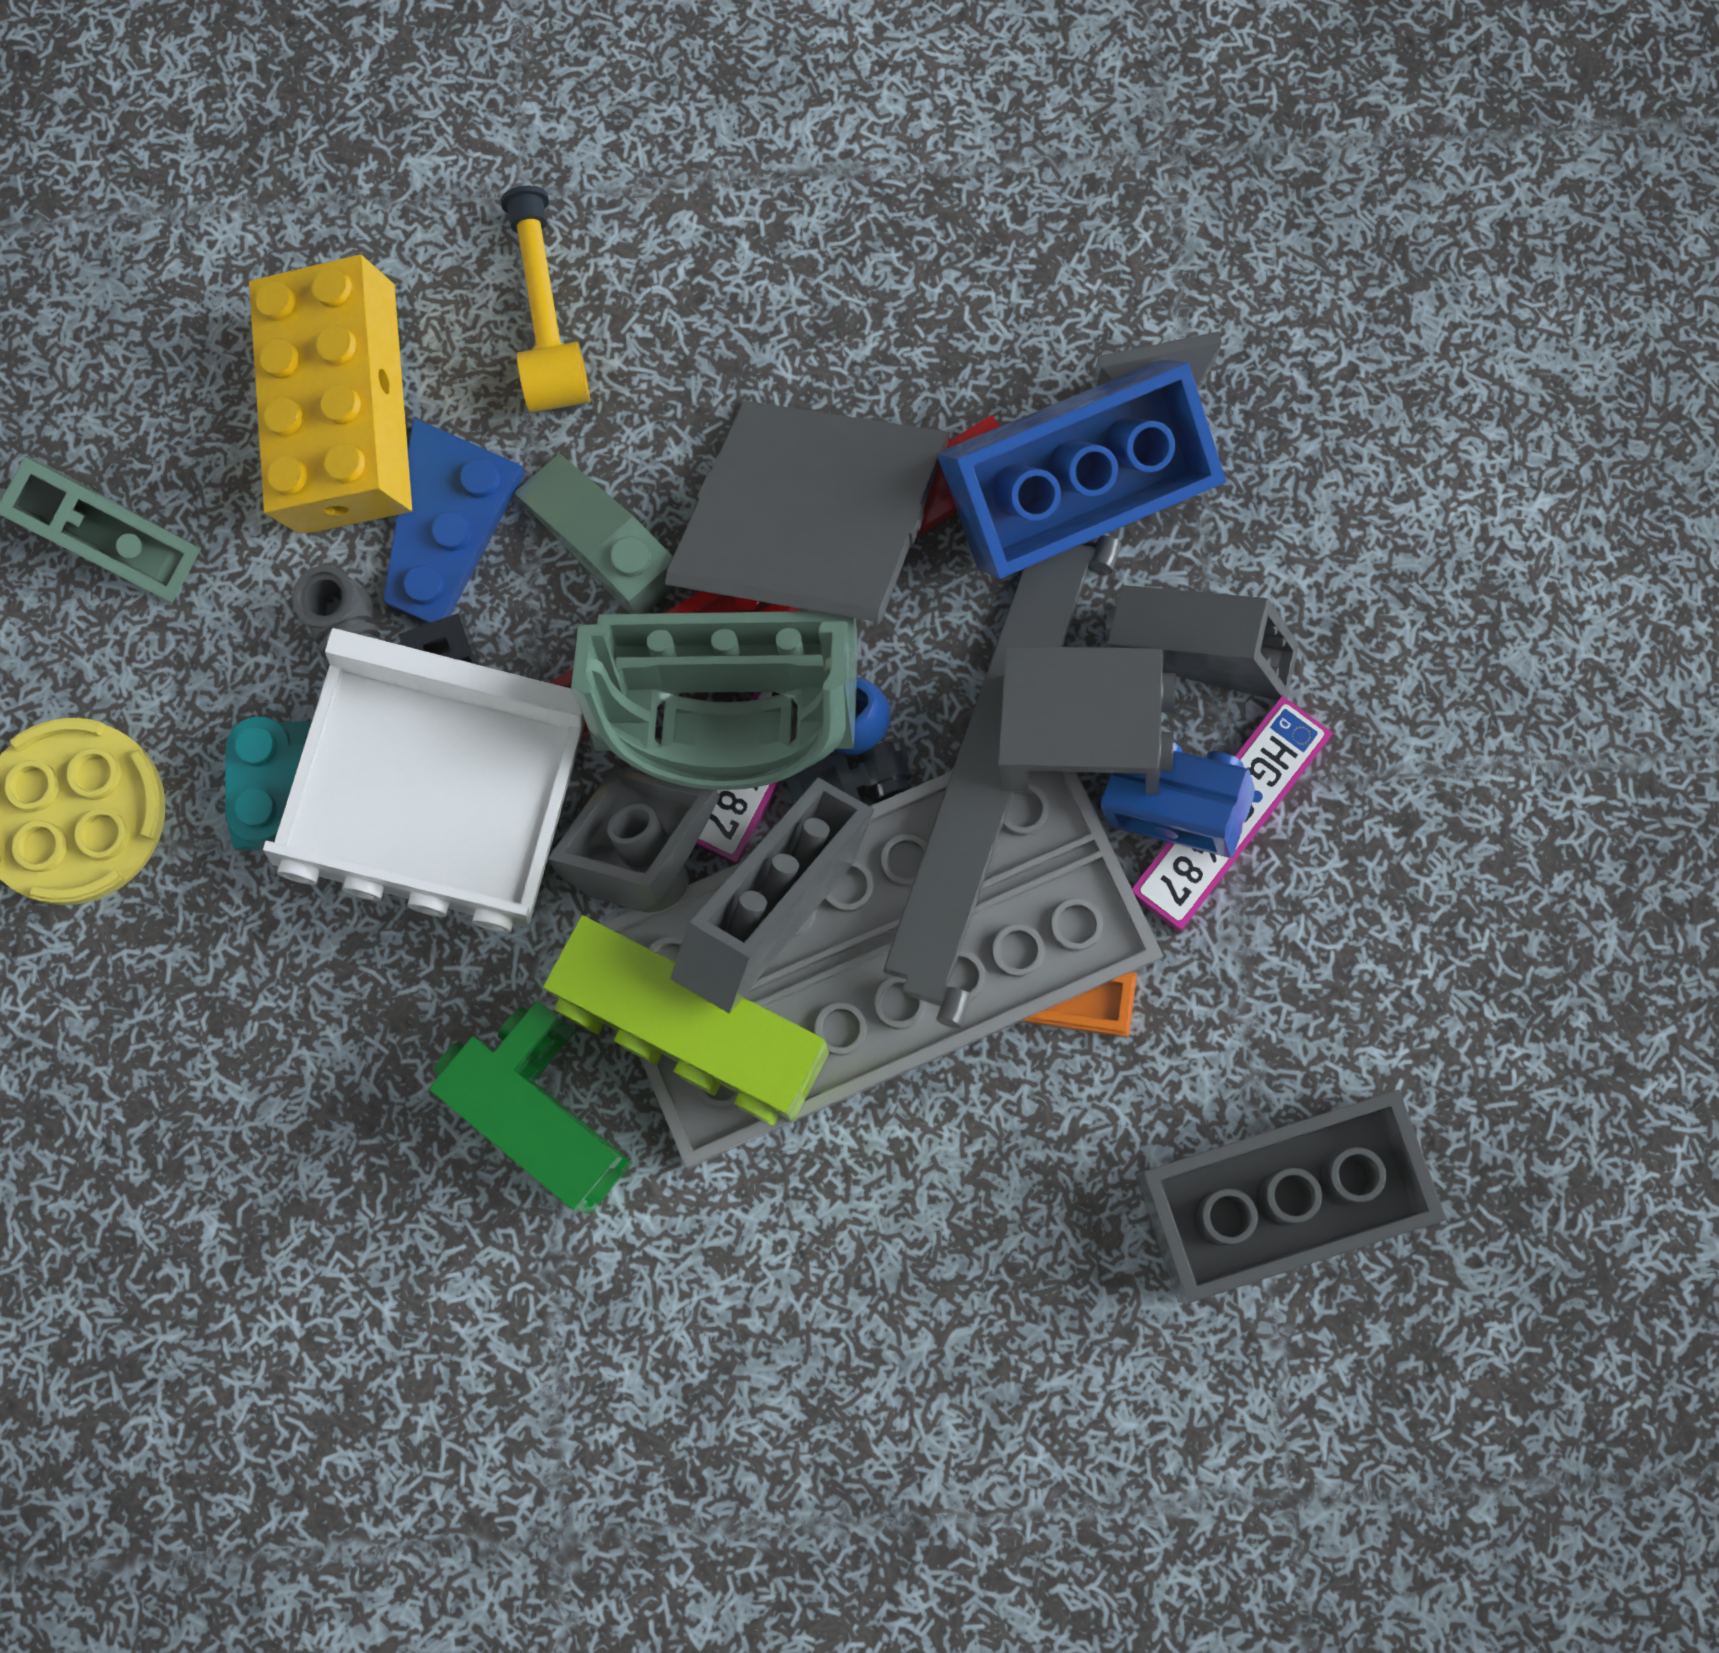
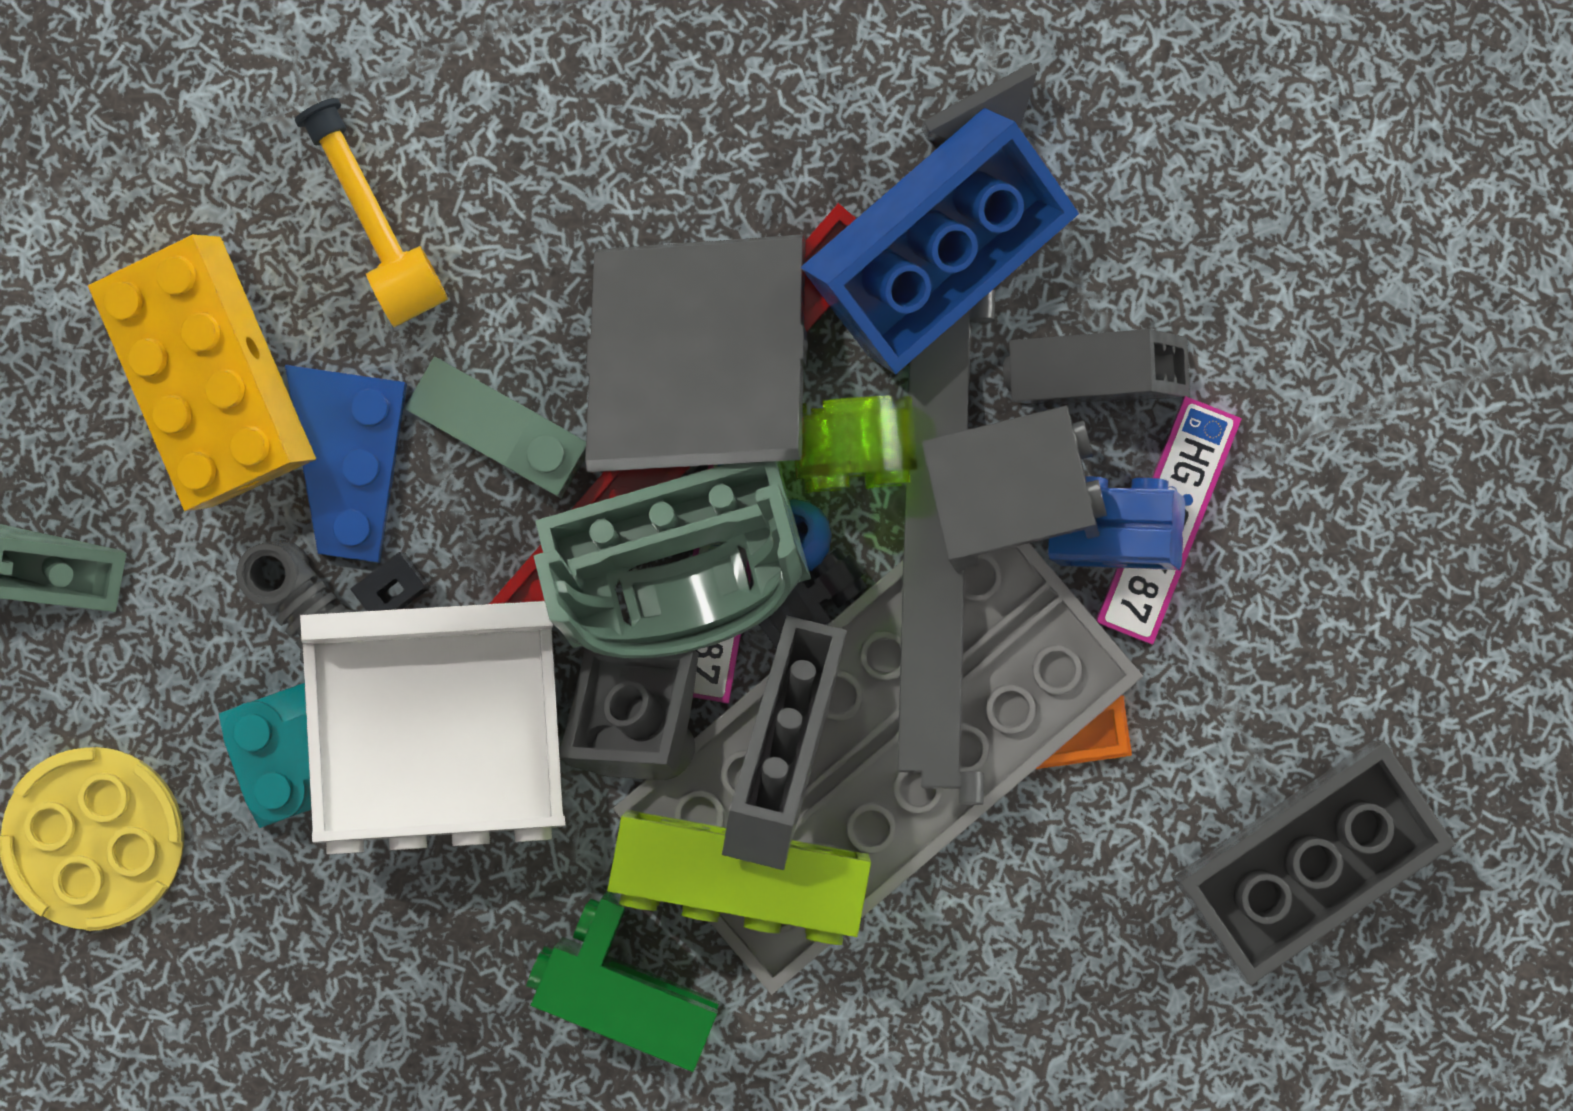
camera: 20 degrees left, 10 degrees up
(939, 637) = (857, 441): none -> clear neon green brick

